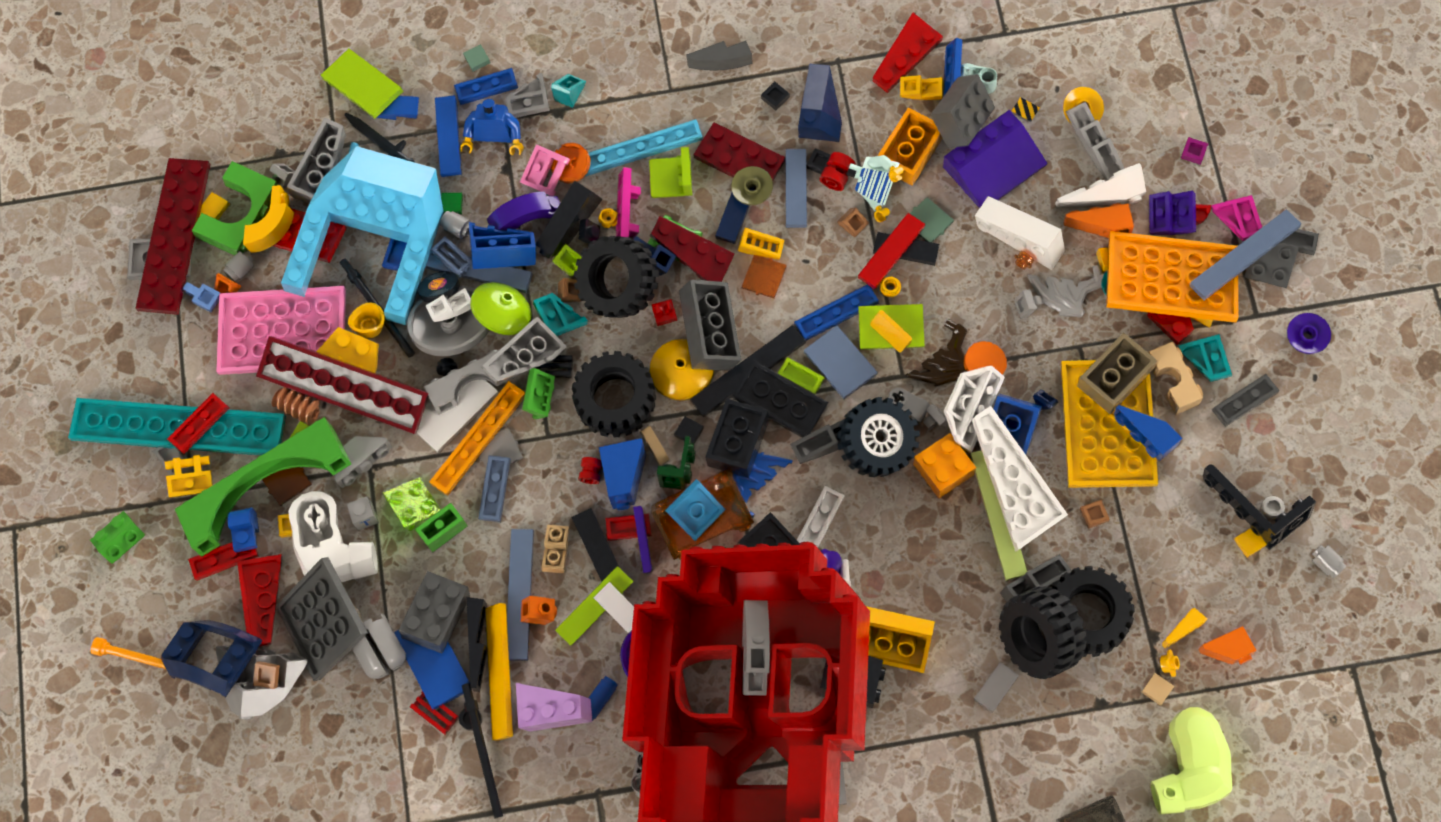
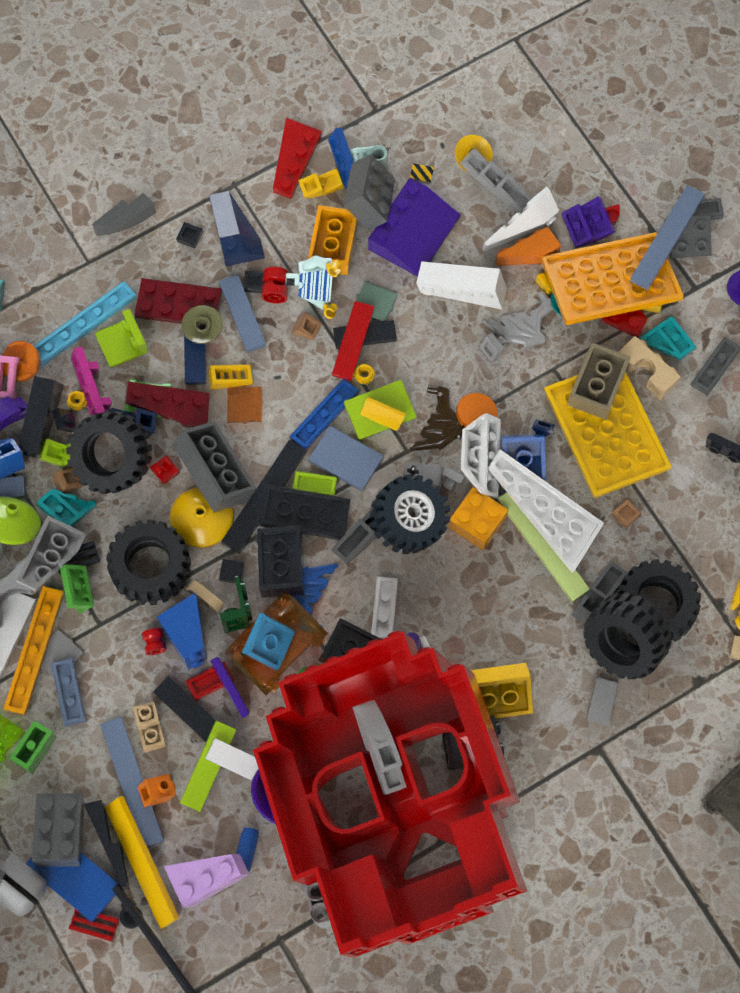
camera: 30 degrees left, 0 degrees up
(1024, 260) = (475, 308): clear orange plate -> none
(1153, 433) = (650, 423): blue slope -> none
(1194, 150) = (585, 161): magenta plate -> none
(1239, 216) = (647, 205): dark pink wing -> none

